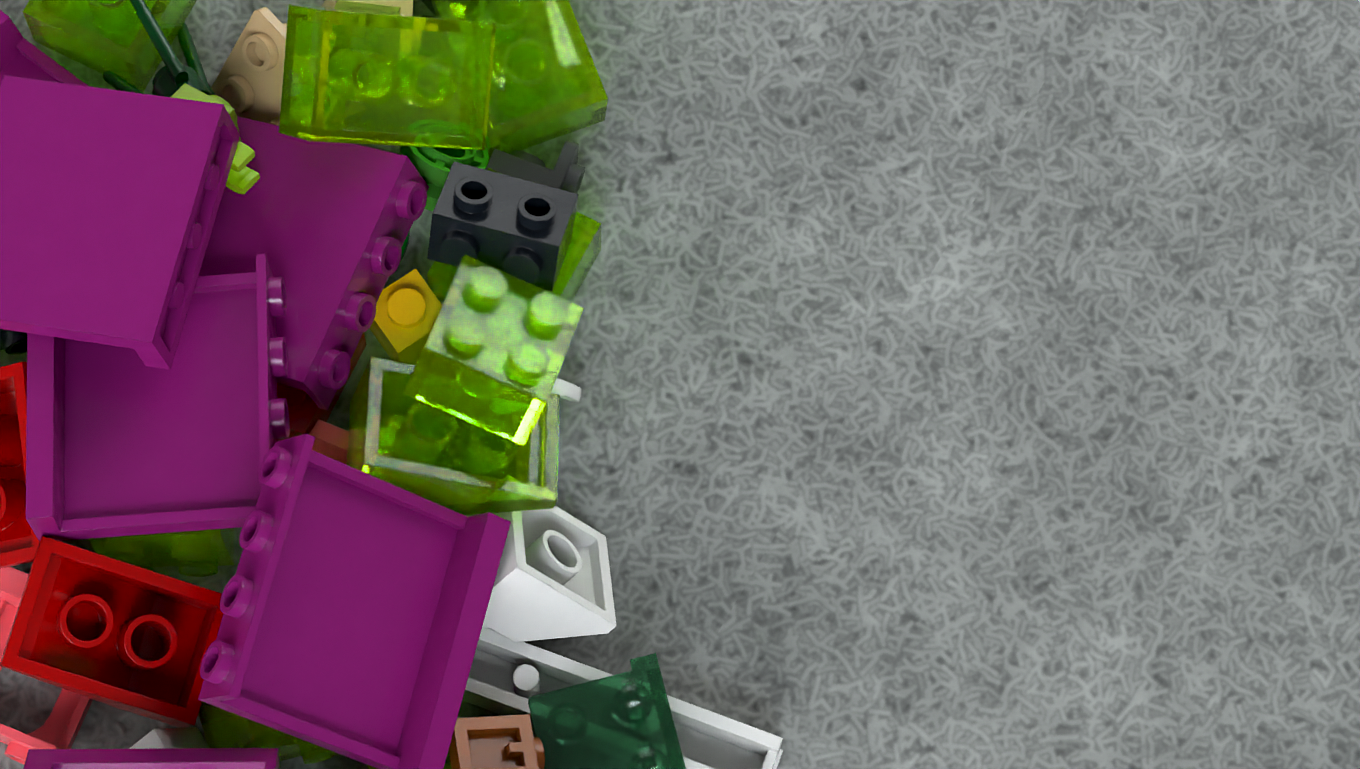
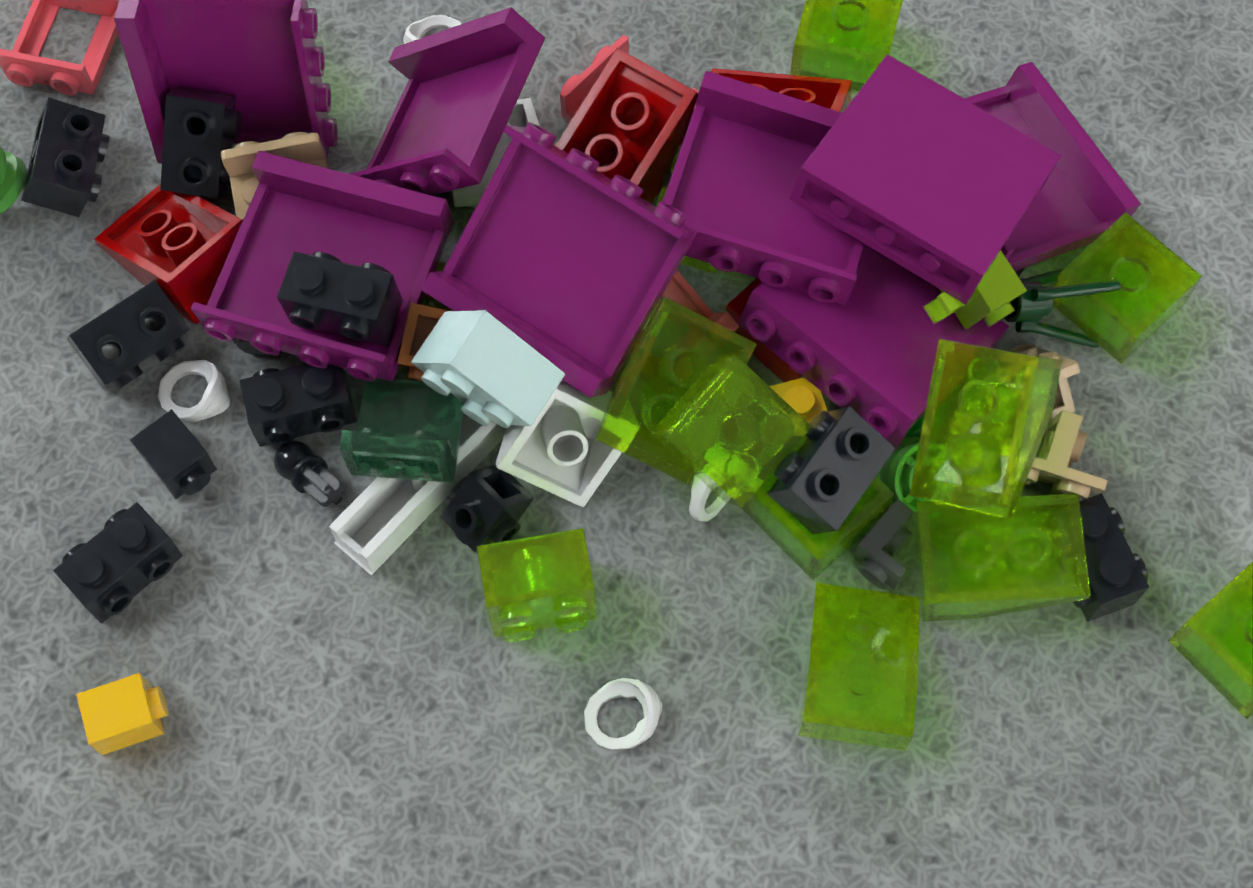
camera: 115 degrees right, 5 degrees down
(527, 650) = (487, 369): none -> light aqua brick
(666, 623) = (486, 507): none -> black brick
(685, 163) = (861, 667): none -> clear neon green slope
(740, 525) = (538, 584): none -> clear neon green brick
(845, 371) = (627, 689): none -> white piece

